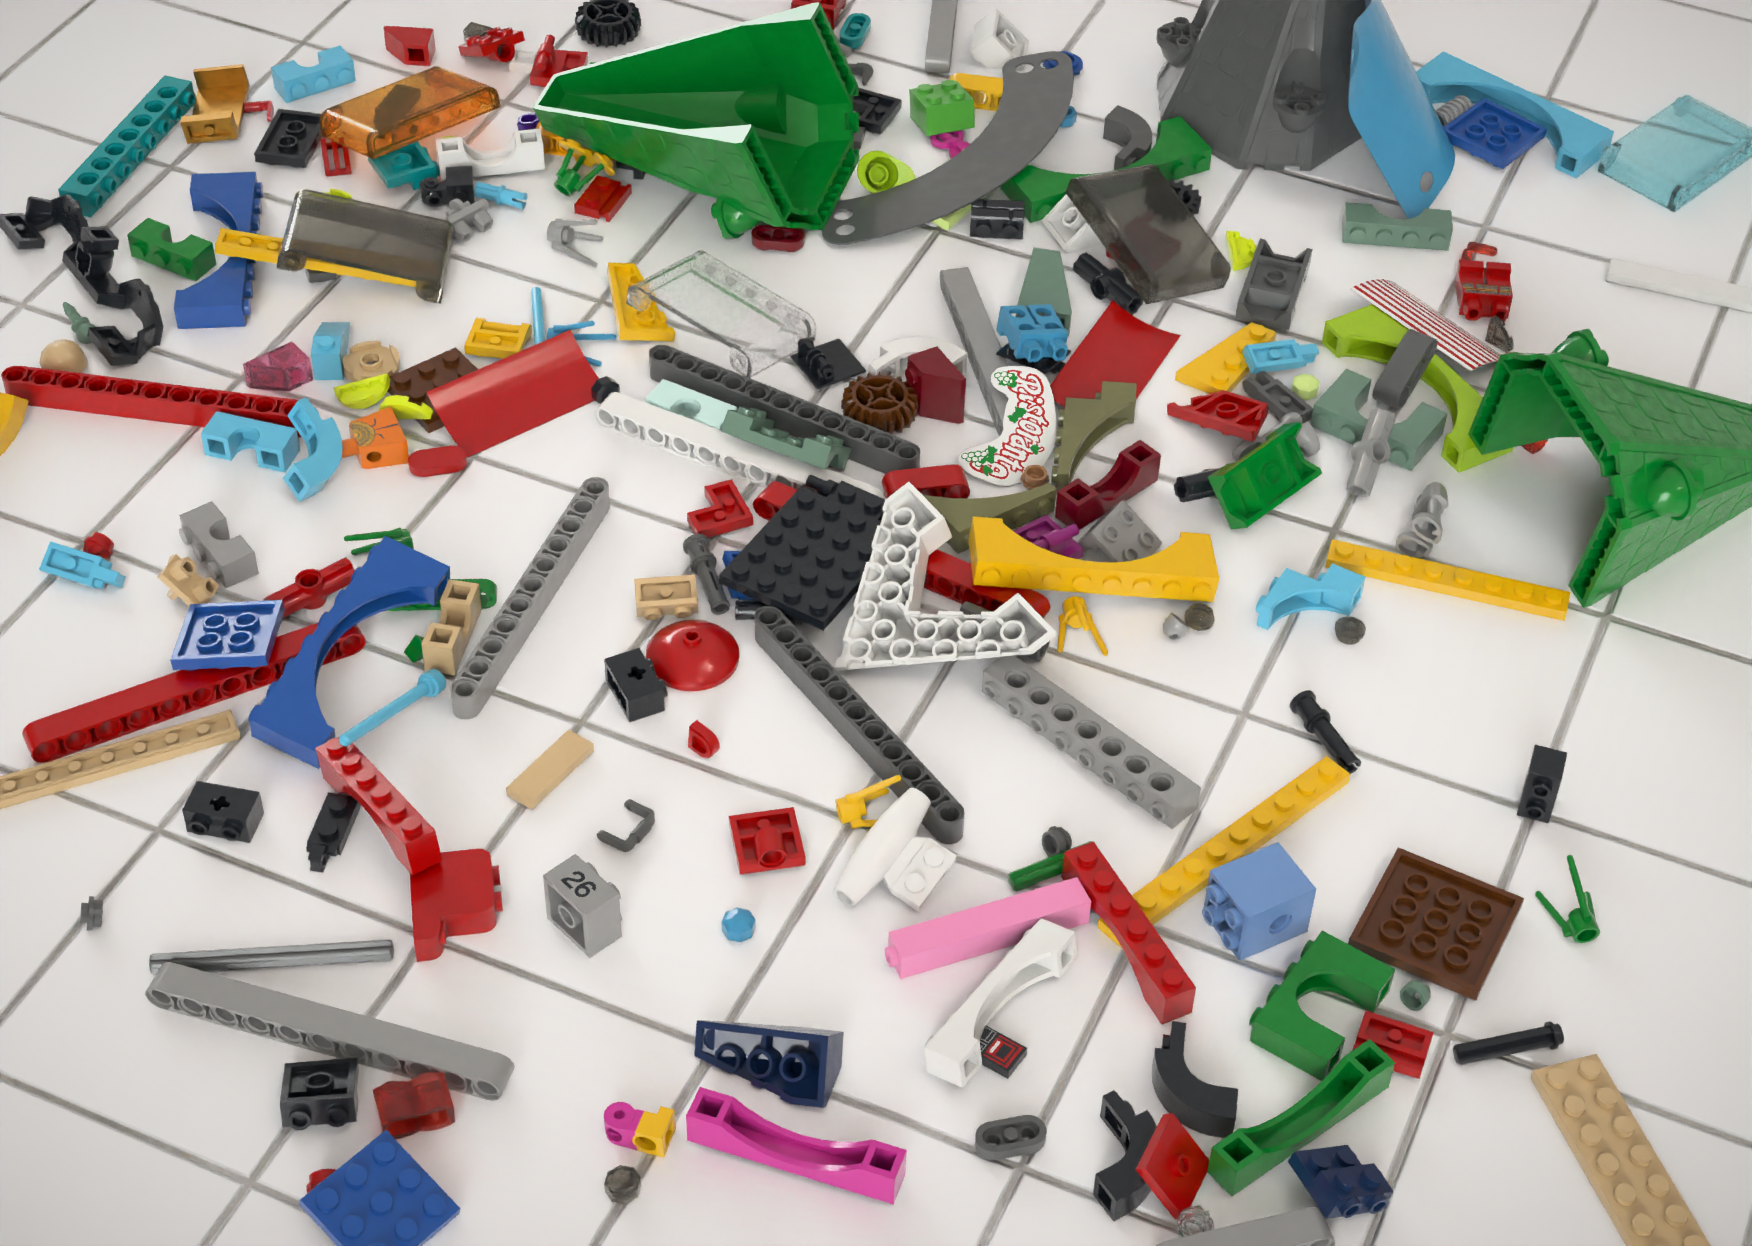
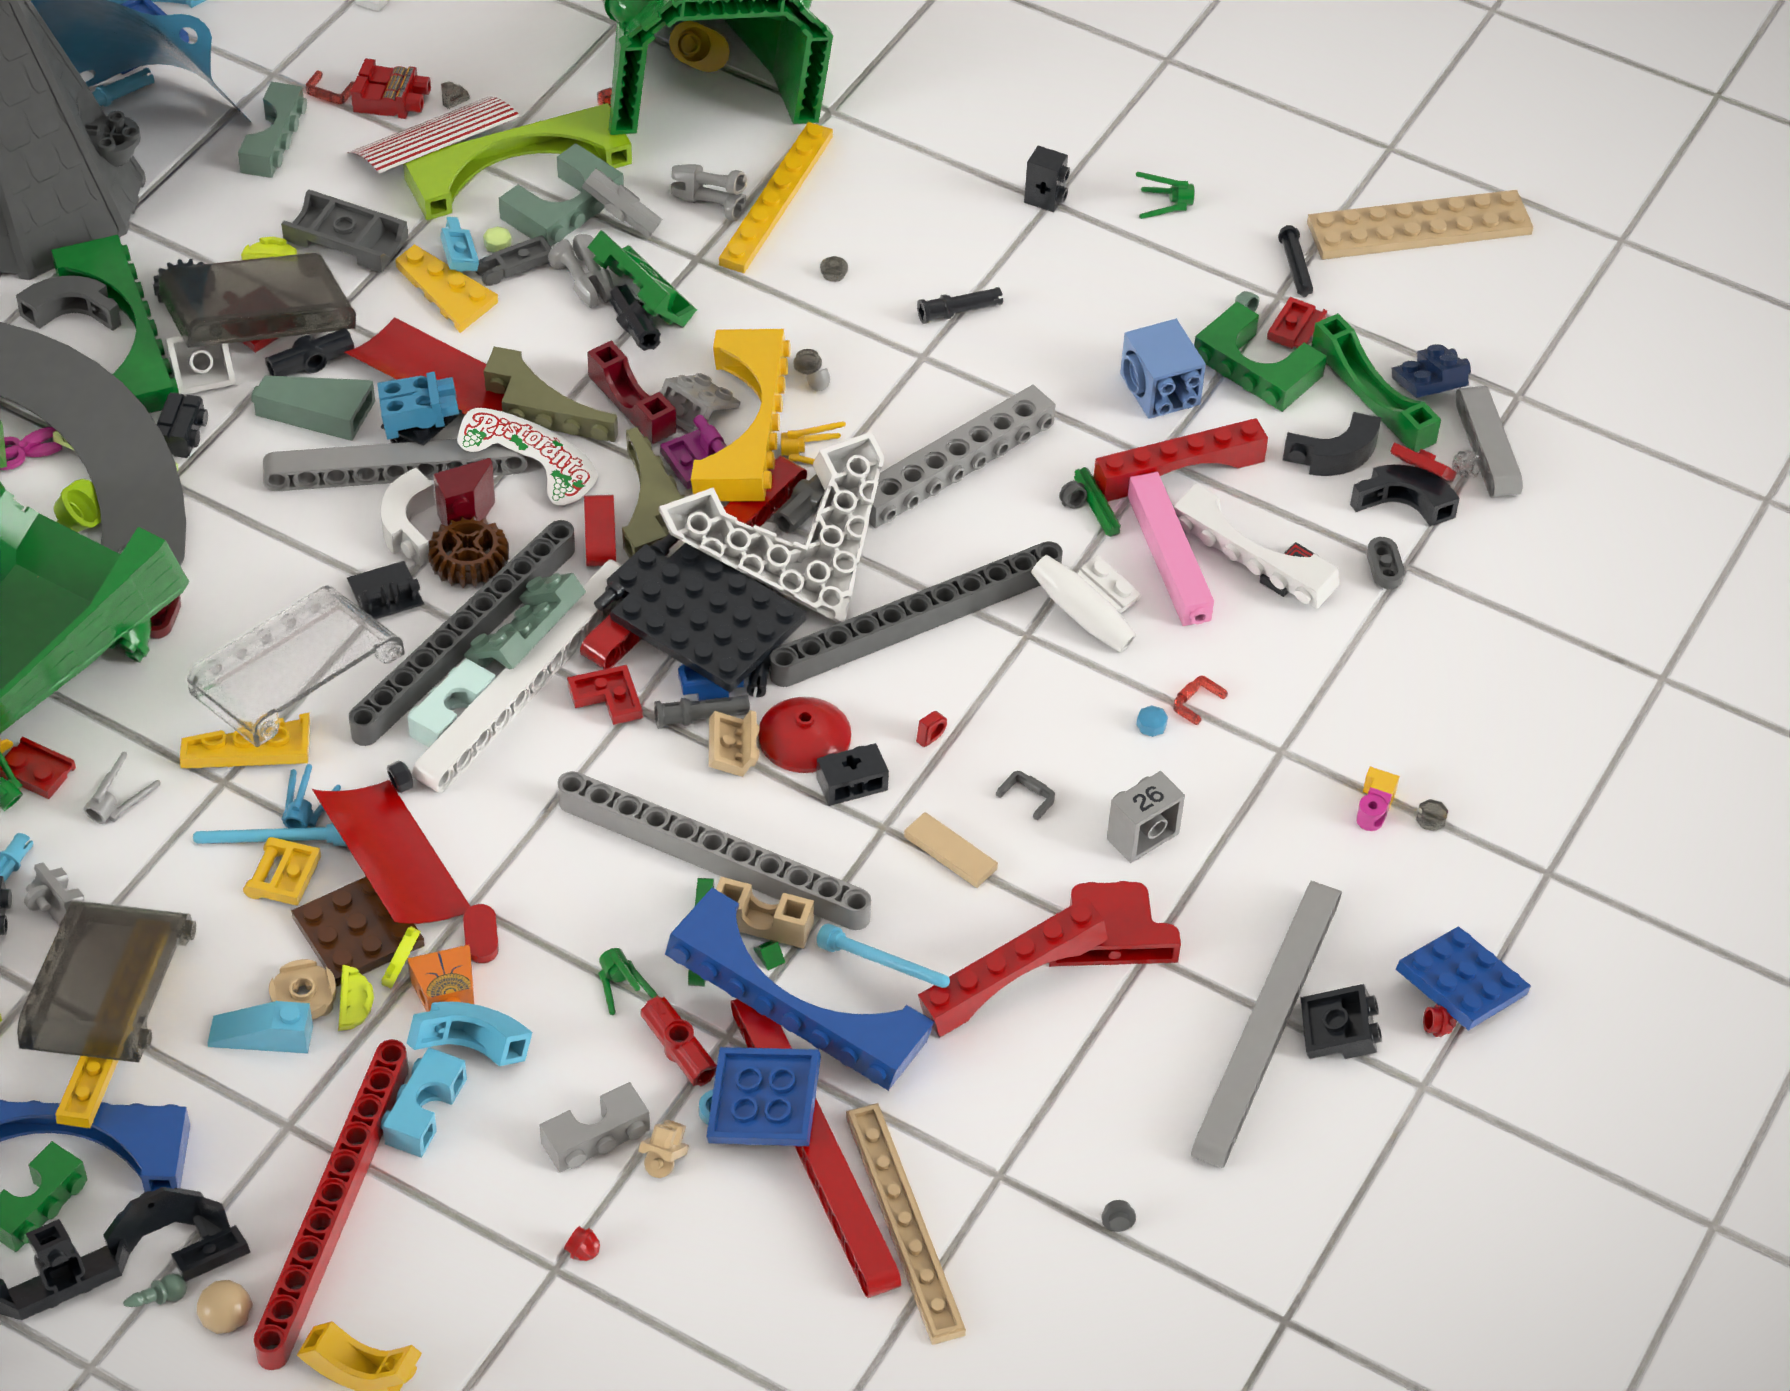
camera: 85 degrees left, 5 degrees up
(79, 567) = (611, 1260): medium azure hinge -> none
(223, 811) = (994, 1110): black brick -> none
(277, 956) = (1175, 1072): axle -> none
(279, 369) = (298, 1073): clear pink slope -> none
(331, 829) = (1016, 1026): black hinge -> none
(414, 1105) = (1353, 955): clear red brick -> none
(767, 840) = (1058, 690): red plate -> none
(783, 955) = (1189, 690): none -> clear red piece
(785, 1060) = (1307, 695): dark blue wedge -> none
(853, 805) = (1024, 627): yellow plant -> none
(859, 1167) = (1404, 692): dark pink arch -> none
(1034, 476) = (597, 449): medium nougat plate -> none
(1224, 413) = (538, 296): red wing -> none
(1238, 840) = (1072, 379): yellow plate -> none
(1293, 592) = (787, 267): medium azure arch -> none
(1405, 369) = (506, 157): dark grey beam -> none
(1436, 923) = (1175, 276): reddish brown plate -> none

